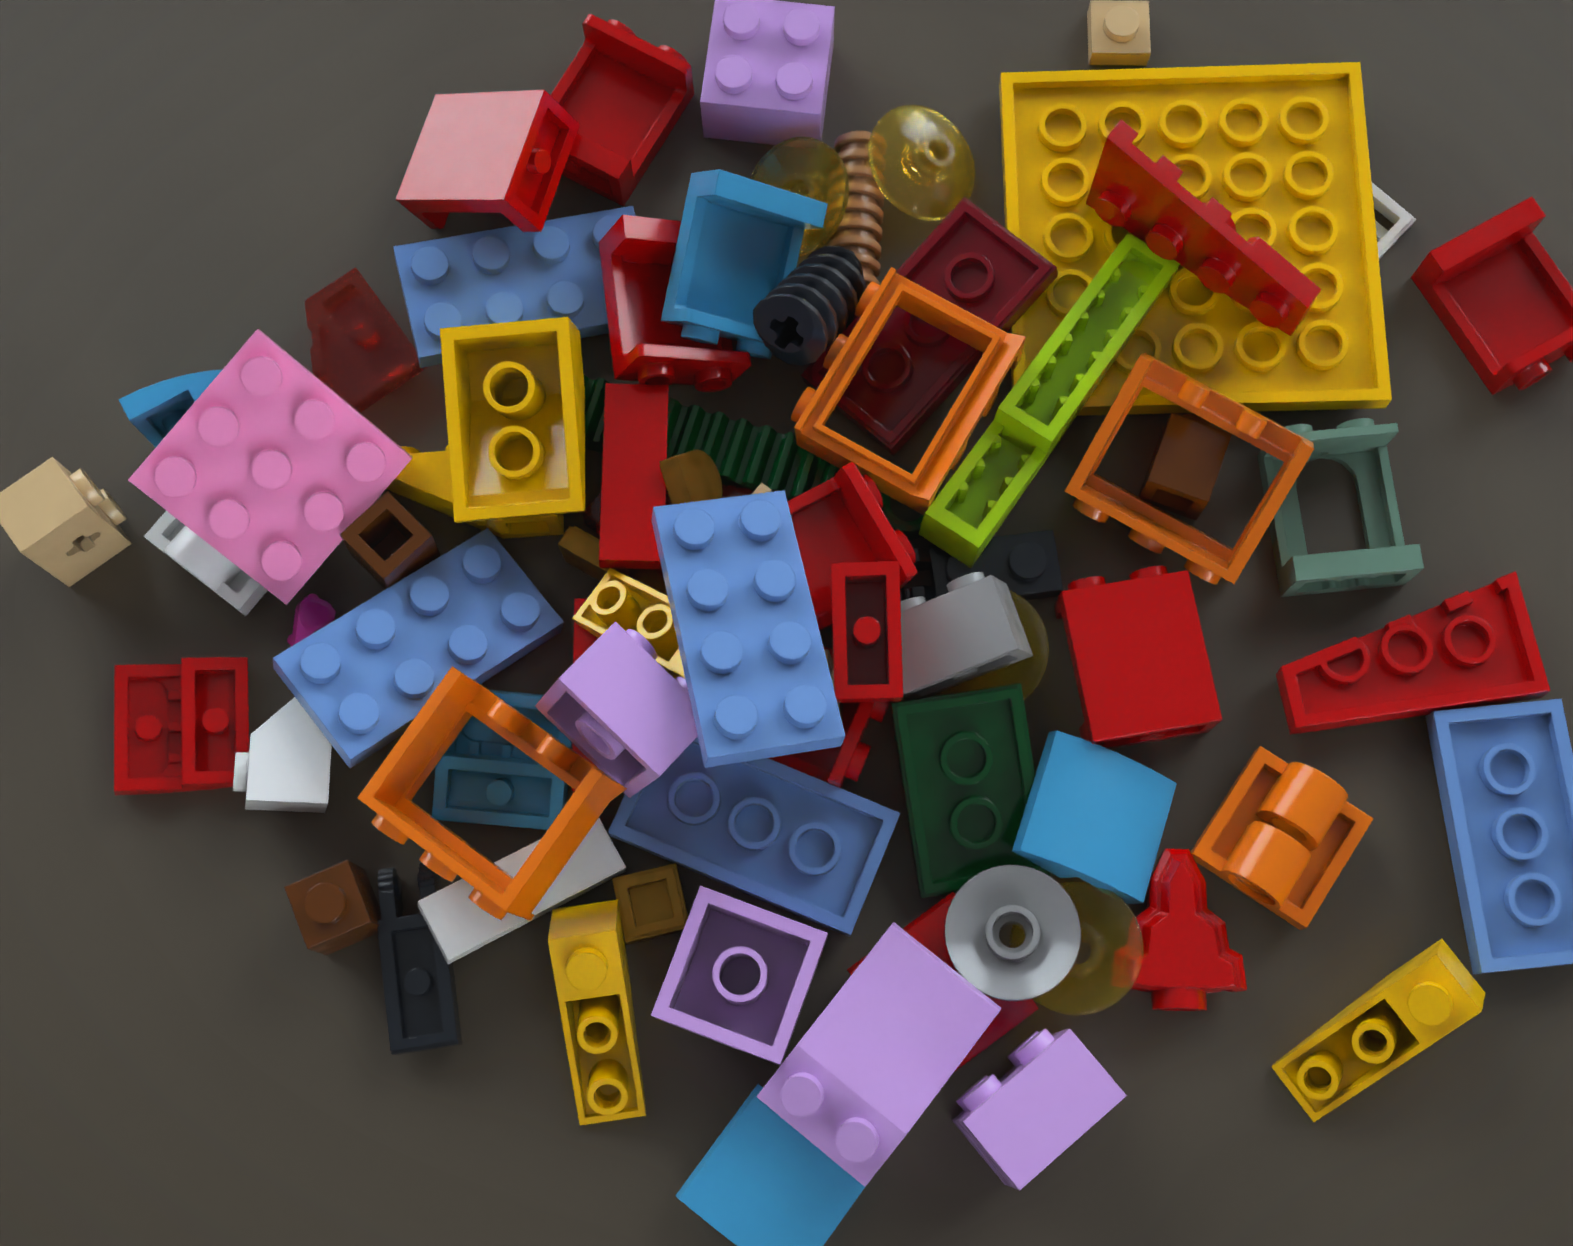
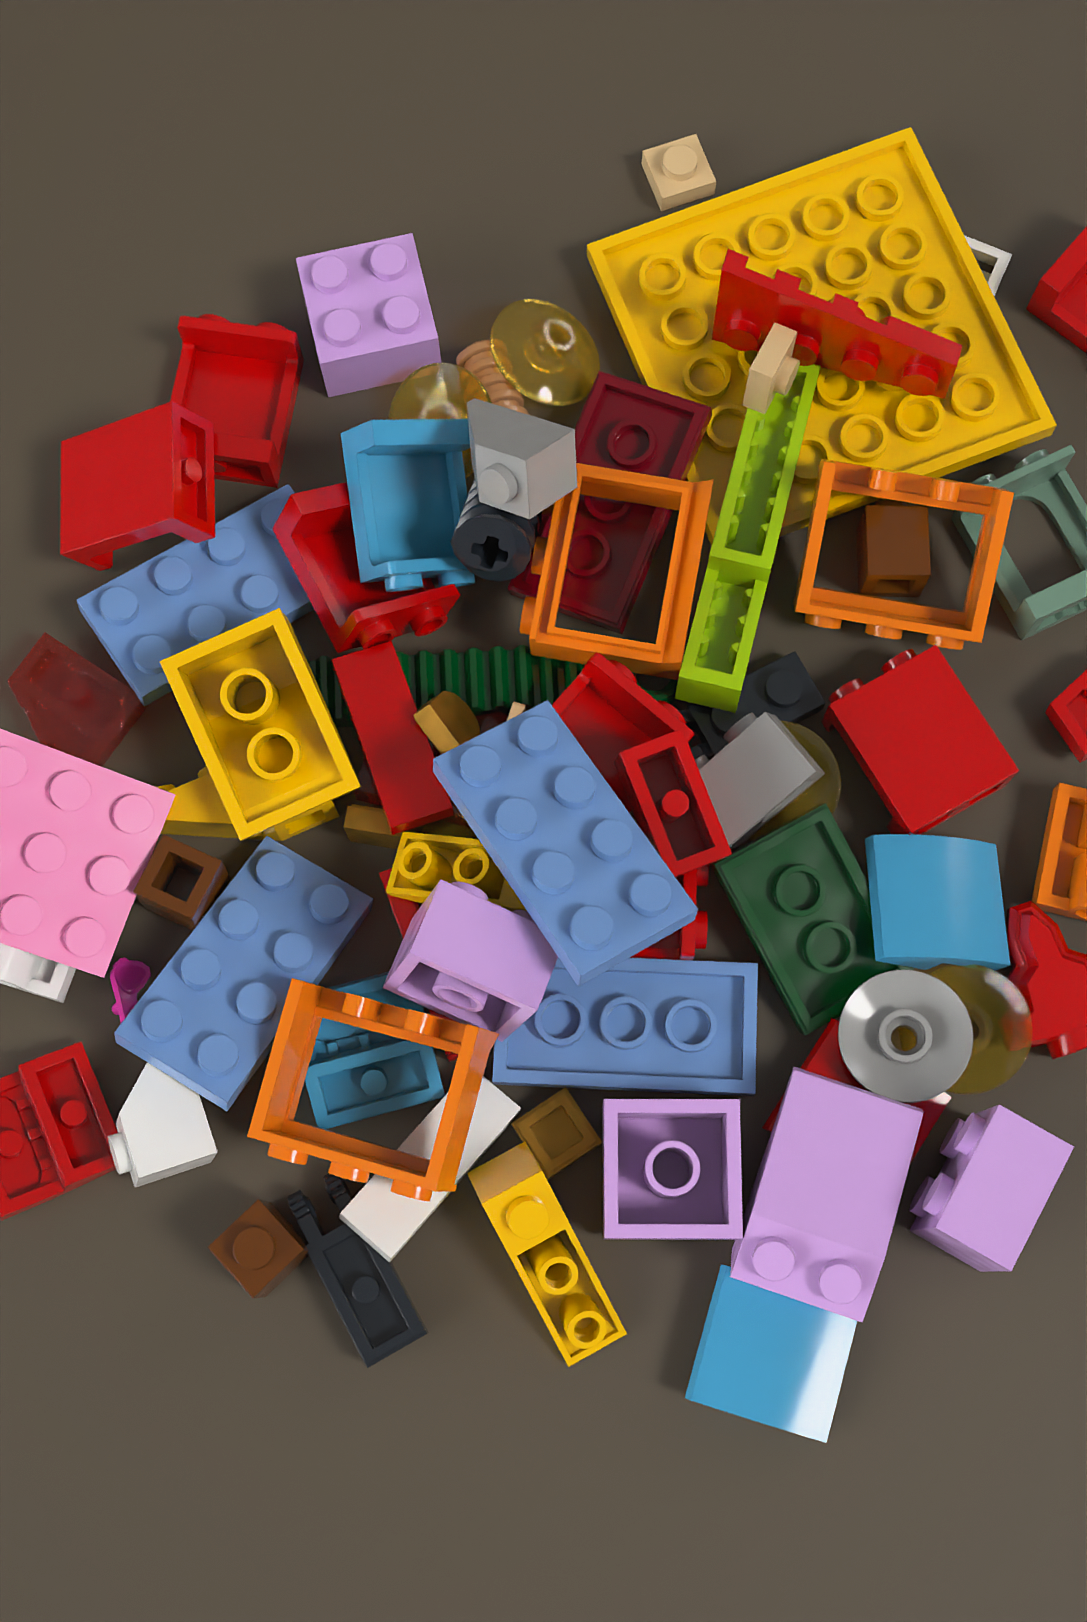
camera: 20 degrees left, 0 degrees up
(846, 254) = (520, 459): none -> light grey slope
(1126, 250) = (771, 369): none -> tan plate

